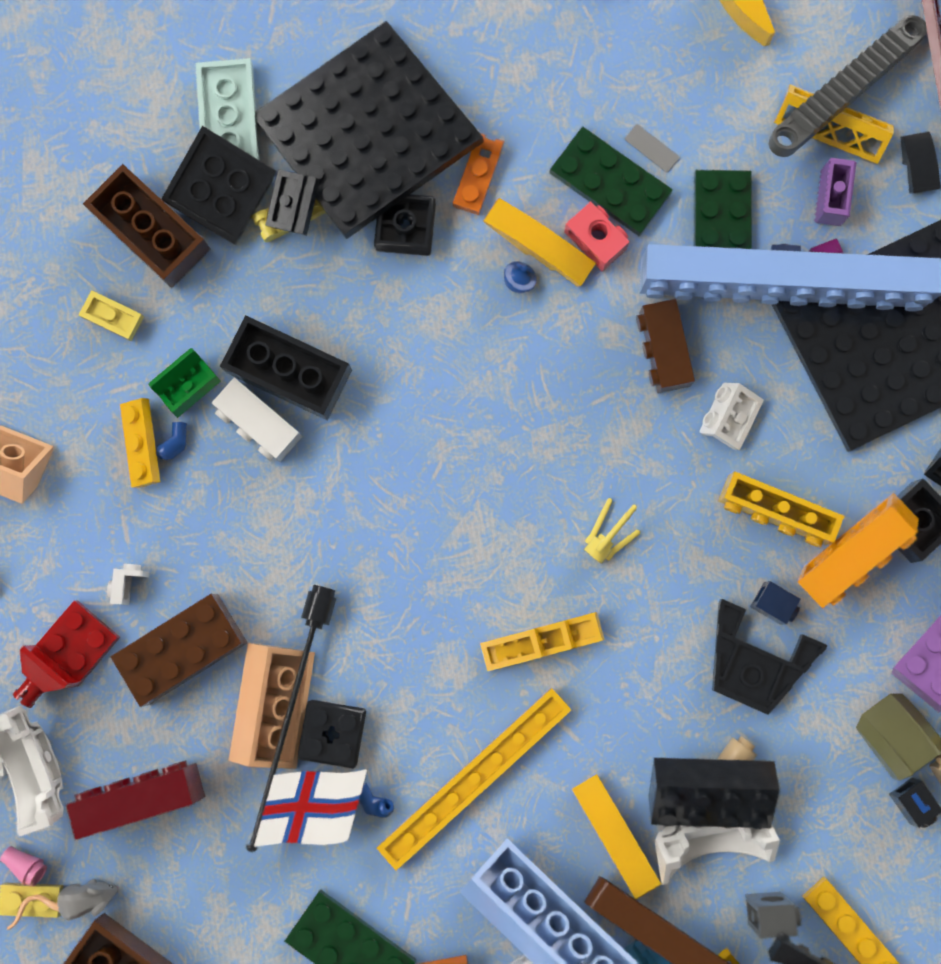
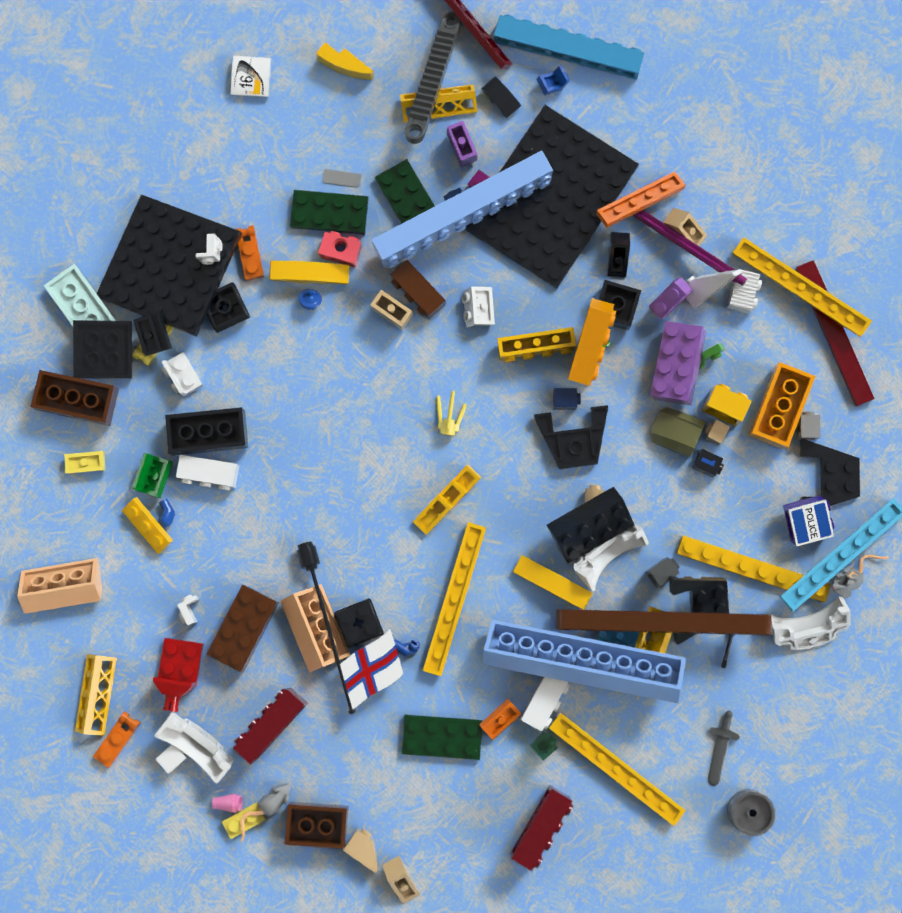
camera: 30 degrees left, 0 degrees up
(299, 277) = (182, 374): none -> white bracket
(433, 139) = (214, 246): none -> white bracket
(616, 352) = (391, 310): none -> tan brick

